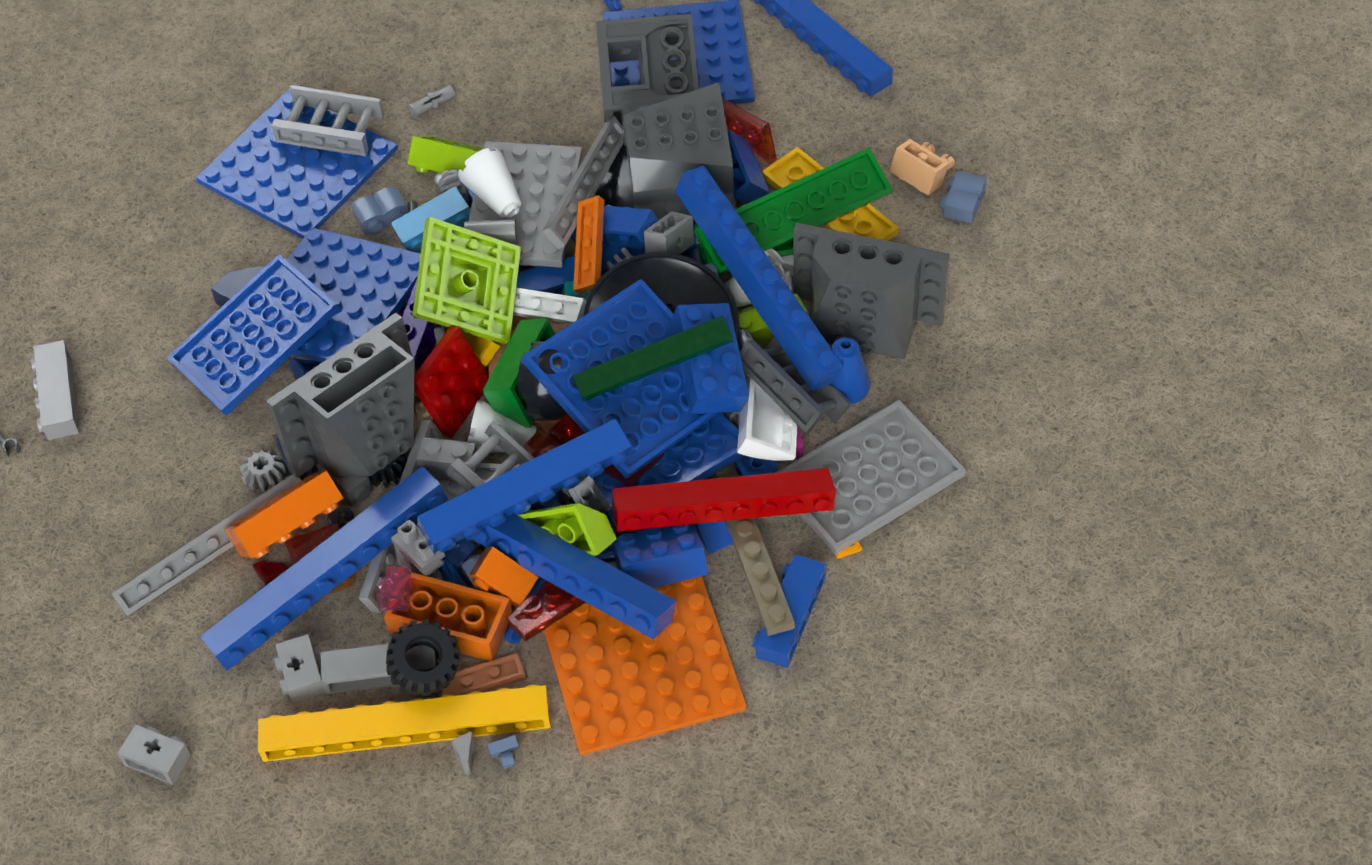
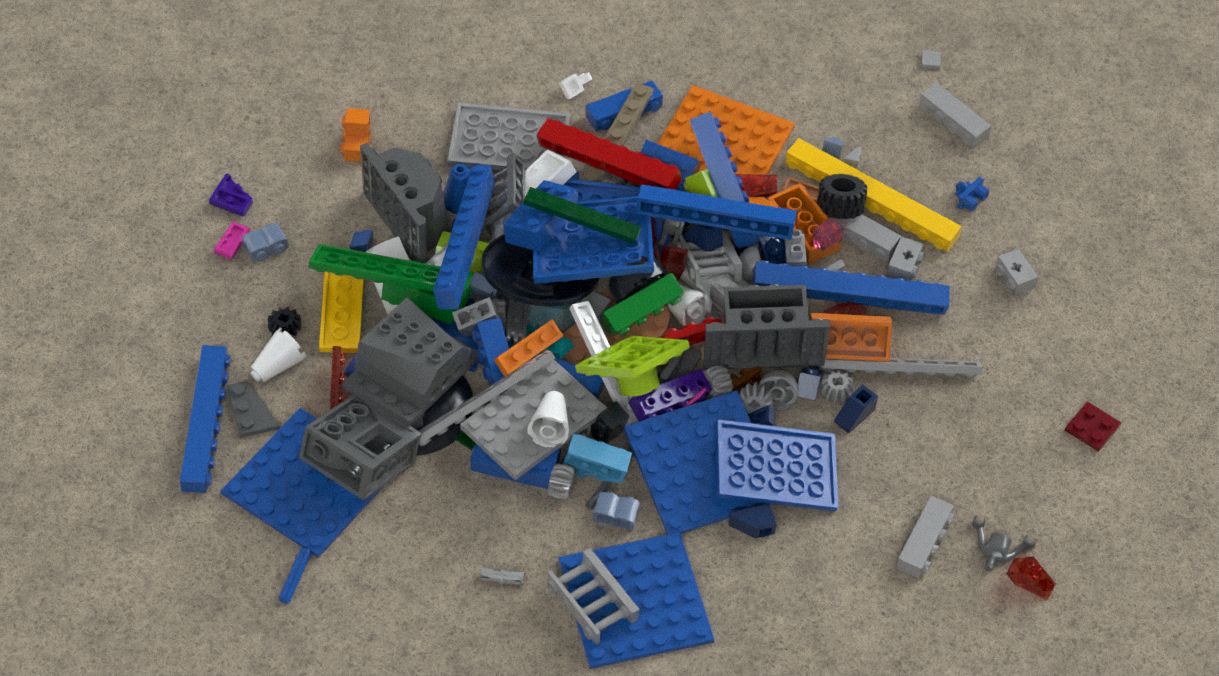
camera: 145 degrees left, 0 degrees up
(220, 461) = (856, 408): none -> dark blue slope
(285, 809) = (967, 192): none -> blue hips
(439, 154) = (533, 515): lime slope -> none
(500, 229) = (580, 396): light grey brick -> none
(795, 68) = (249, 411): none -> dark grey wing
(820, 115) = (276, 357): none -> white cone
(852, 142) = (284, 319): none -> black gear
(872, 592) = (573, 84): none -> white plate
(920, 166) = (268, 274): light nougat brick -> none
(998, 180) = (231, 241): none -> dark pink plate
(1013, 348) = (356, 132): none -> orange brick
(1052, 214) = (231, 197): none -> dark purple wing

